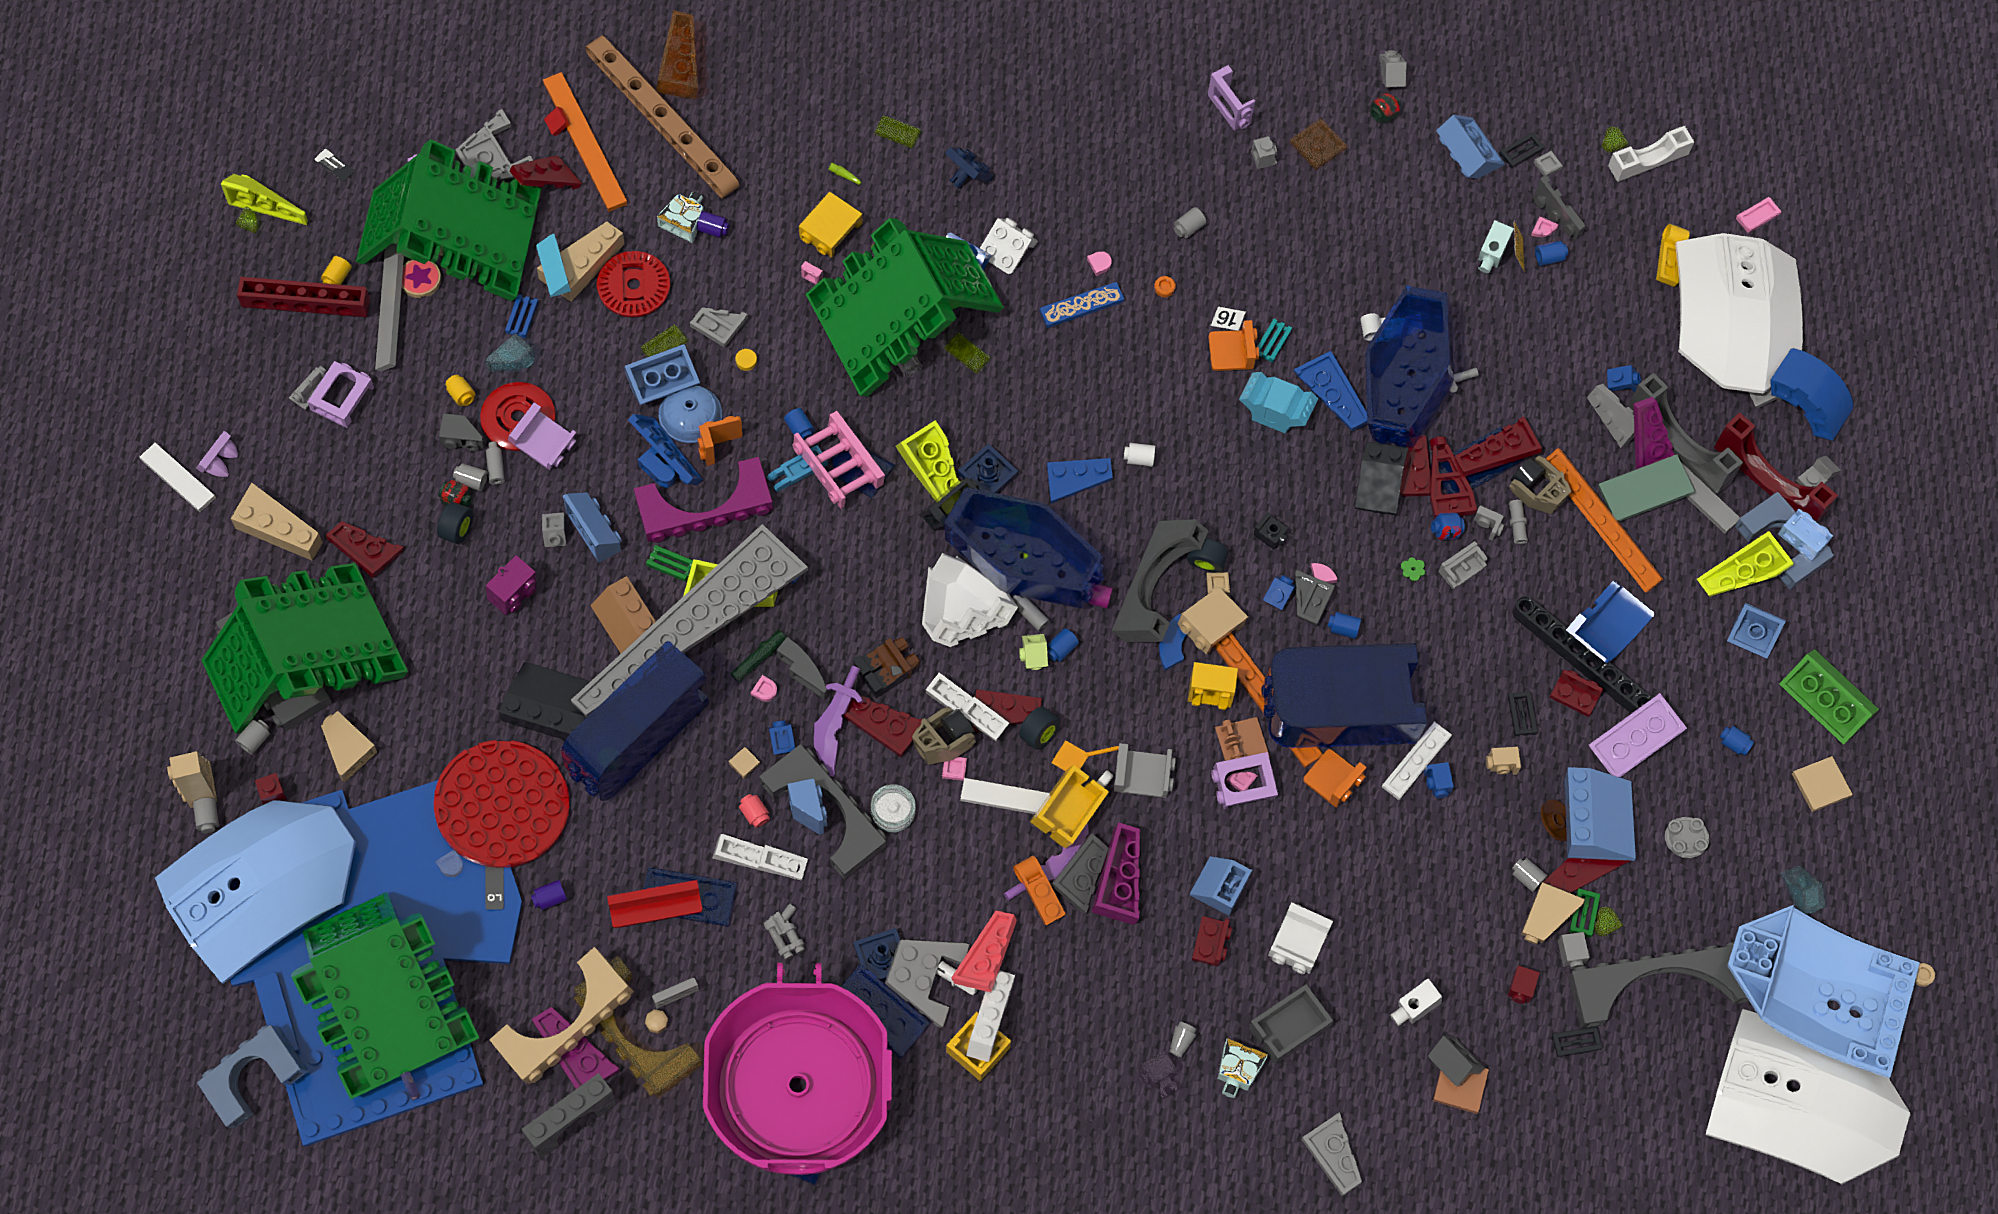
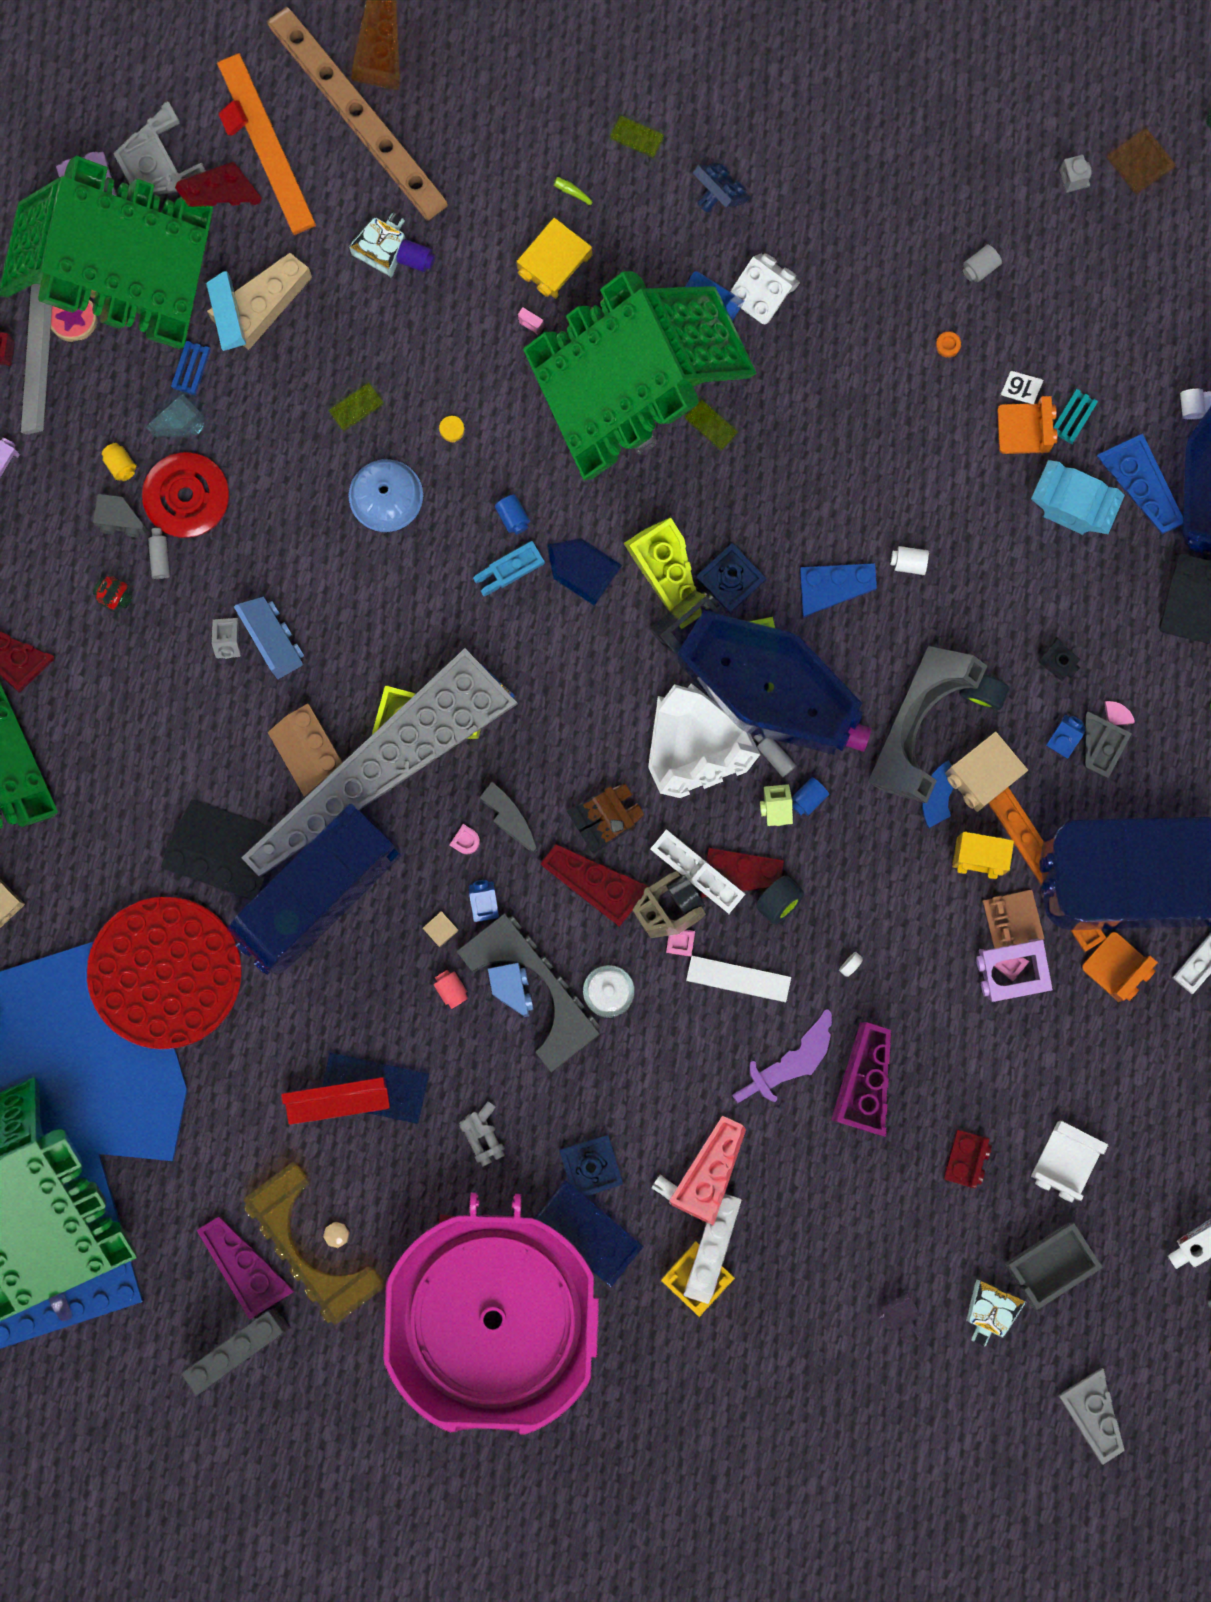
camera: 10 degrees right, 15 degrees up
(450, 864) = (106, 1045): clear tile -> none
(455, 522) = (111, 630): black wheel -> none
(471, 476) = (130, 571): light grey brick -> none
(494, 888) = (156, 1073): dark grey sticker -> none
(512, 586) = (177, 711): magenta brick -> none
(541, 438) = (213, 525): lavender panel -> none
(548, 895) = (217, 1084): dark purple brick -> none
(604, 993) = (276, 1208): tan arch -> none
(652, 465) = (351, 572): blue leg -> none
(653, 284) = (344, 333): red piece -> none
(661, 374) = (352, 451): medium blue slope -> none
(664, 445) = (353, 537): blue wing -> none
(664, 520) = (351, 631): magenta arch -> none
(674, 556) = (340, 673): green tile -> none
(675, 992) = (357, 1204): light grey tile -> none
(717, 432) = (410, 525): orange bracket -> none
(718, 325) = (420, 384): light grey wing -> none
(758, 857) = (456, 1044): white slope -> none
(761, 653) = (459, 800): clear green pin -> none
(831, 720) = (541, 883): medium lavender sword -> none
(849, 443) = (569, 540): bright pink fence -> none
(914, 972) = (628, 1187): light grey wing -> none
(1039, 889) = (772, 1095): orange plate -> none
(1069, 806) = (811, 998): yellow piece -> none
(1072, 755) = (816, 932): light orange piece -> none
(1079, 875) = (819, 1077): dark grey wing -> none
(1081, 305) = (848, 366): blue tile -> none
(1099, 262) = (872, 312): bright pink tile -> none
(1143, 772) = (898, 954): light grey panel -> none
(1182, 1038) = (928, 1275): light grey cone -> none
(1218, 580) = (994, 721): tan tile -> none
(1220, 86) = (1026, 85): lavender panel -> none
(1221, 884) = (981, 1093): medium blue slope -> none
(1344, 625) = (1140, 779): blue brick -> none

